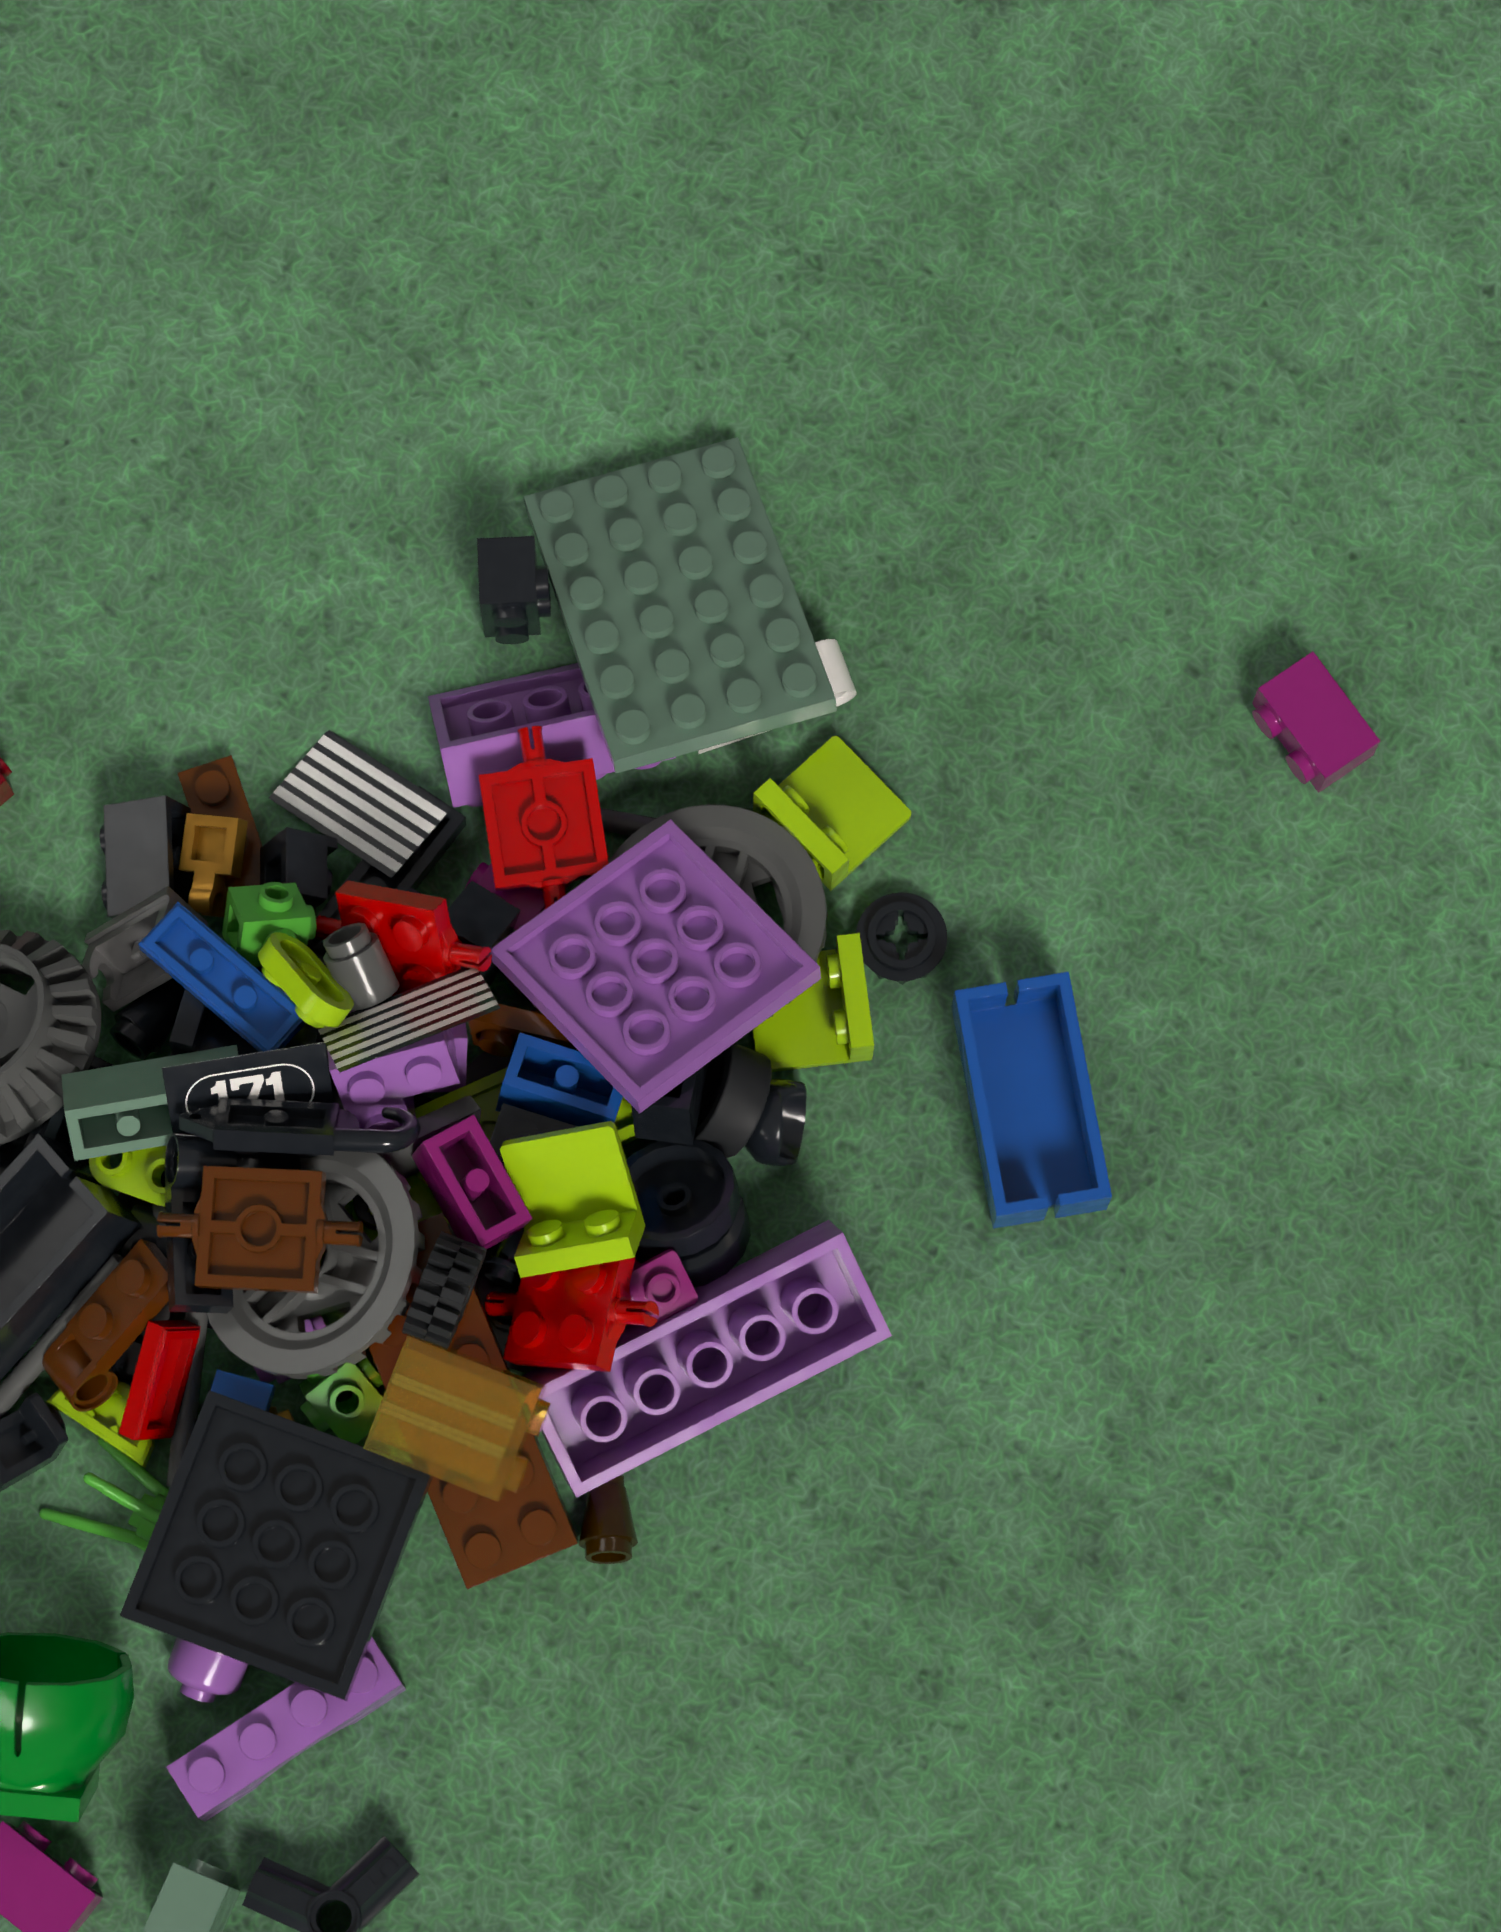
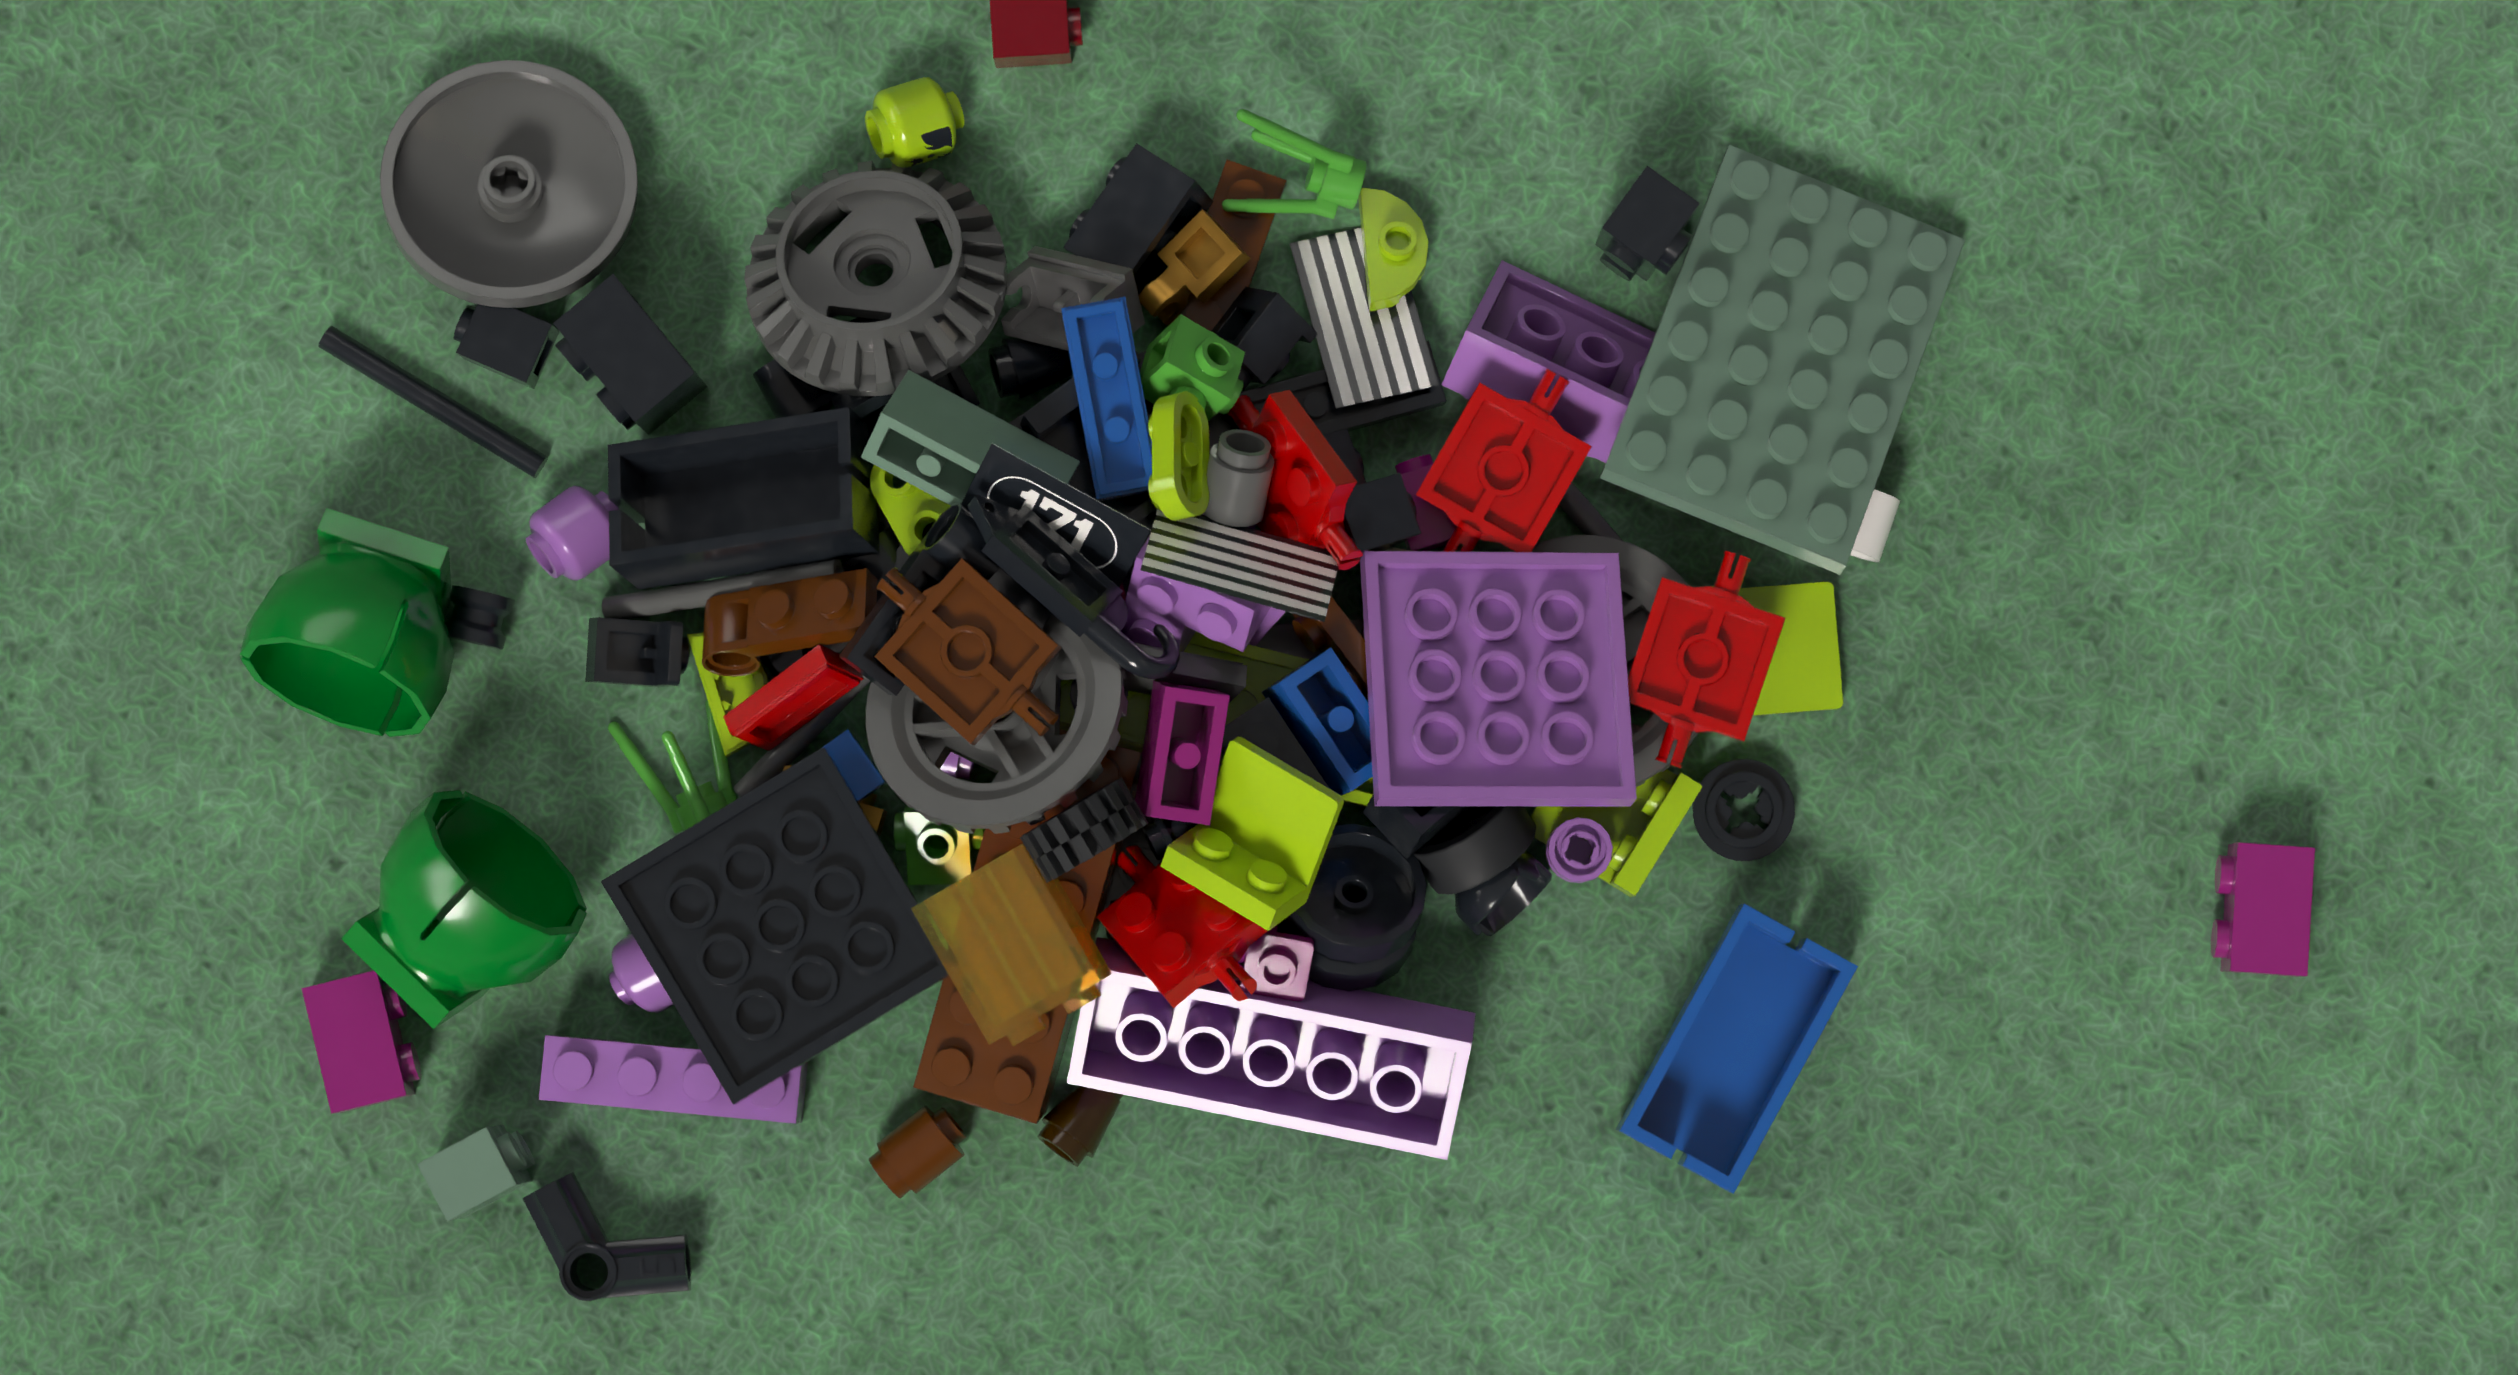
camera: 45 degrees right, 10 degrees up
(259, 723) = (1331, 174): none -> bright green plant
(342, 742) = (1392, 247): none -> lime plate
(507, 1638) = (918, 1151): none -> reddish brown brick
(789, 842) = (1703, 659): none -> red plate
(805, 1060) = (1570, 854): none -> medium lavender wheel

